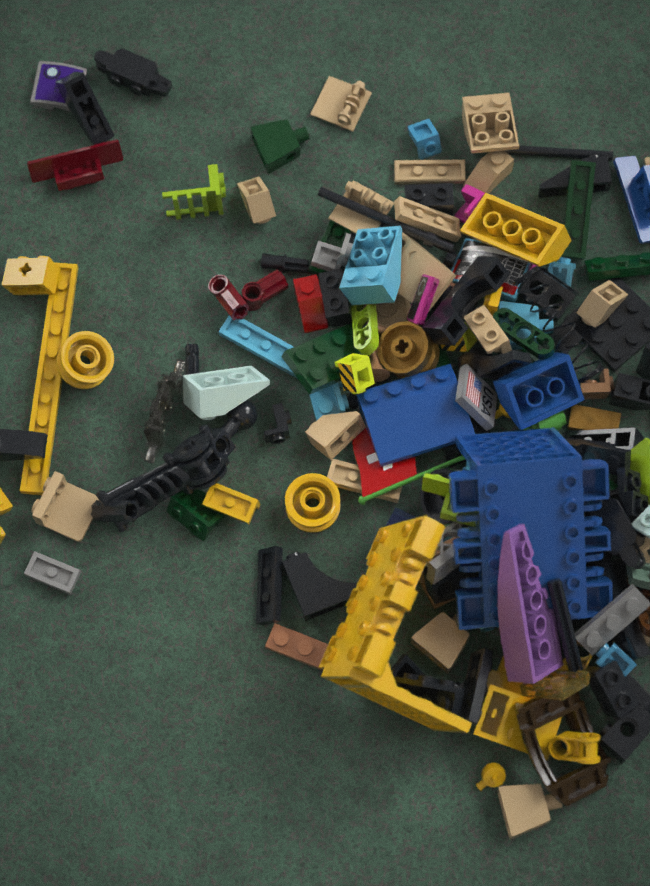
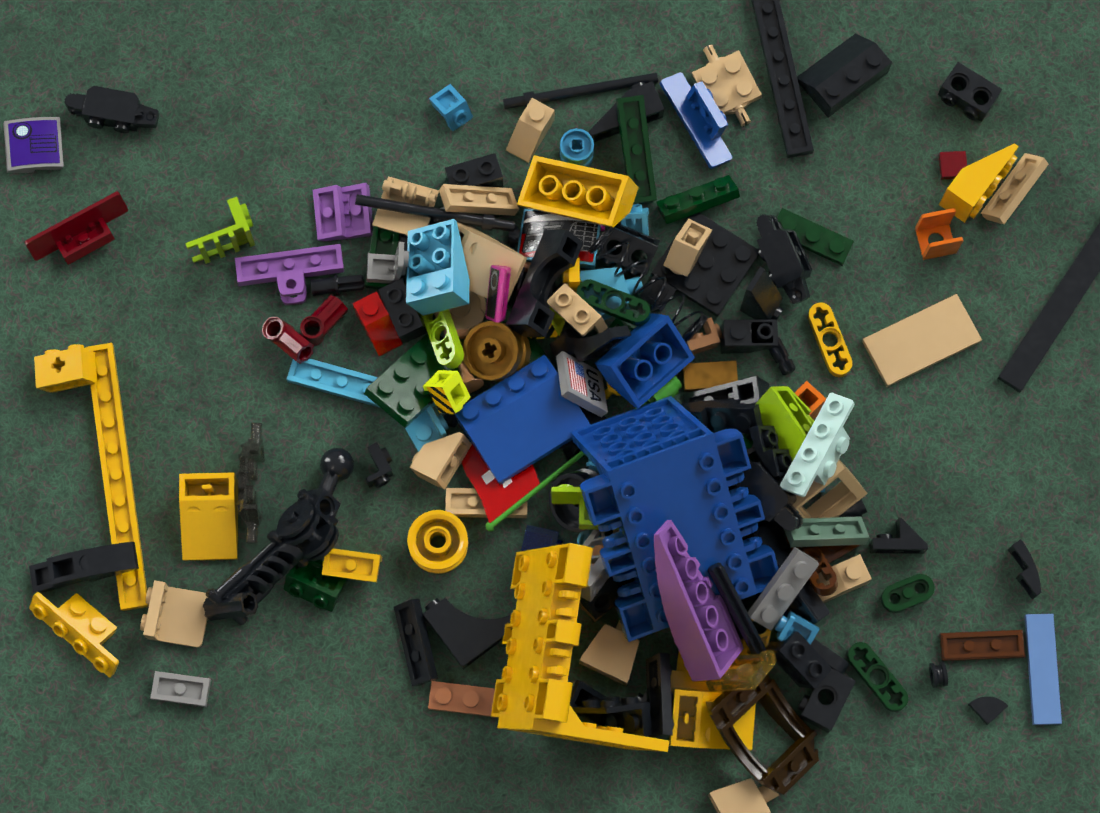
camera: 20 degrees left, 5 degrees up
(85, 107) = (70, 163): black slope -> none
(95, 349) = (139, 460): yellow wheel -> none
(118, 430) = (208, 516): none -> yellow slope
(192, 358) = (268, 425): black axle -> none
(221, 390) = (309, 444): light aqua slope -> none
(247, 240) = (290, 269): none -> medium lavender plate
(257, 200) = (288, 221): tan slope -> none
(277, 143) = (293, 152): dark green torso -> none
(303, 206) = (339, 216): none -> medium lavender slope
(341, 103) = (350, 88): tan hinge -> none
(429, 171) = (466, 143): tan tile -> none
(472, 197) = (521, 164): dark pink panel -> none
(489, 123) = (518, 76): tan slope -> none
(492, 776) = (700, 781): yellow piece -> none
(526, 194) = (577, 147): none -> dark azure wheel
(580, 747) = (783, 730): yellow piece -> none

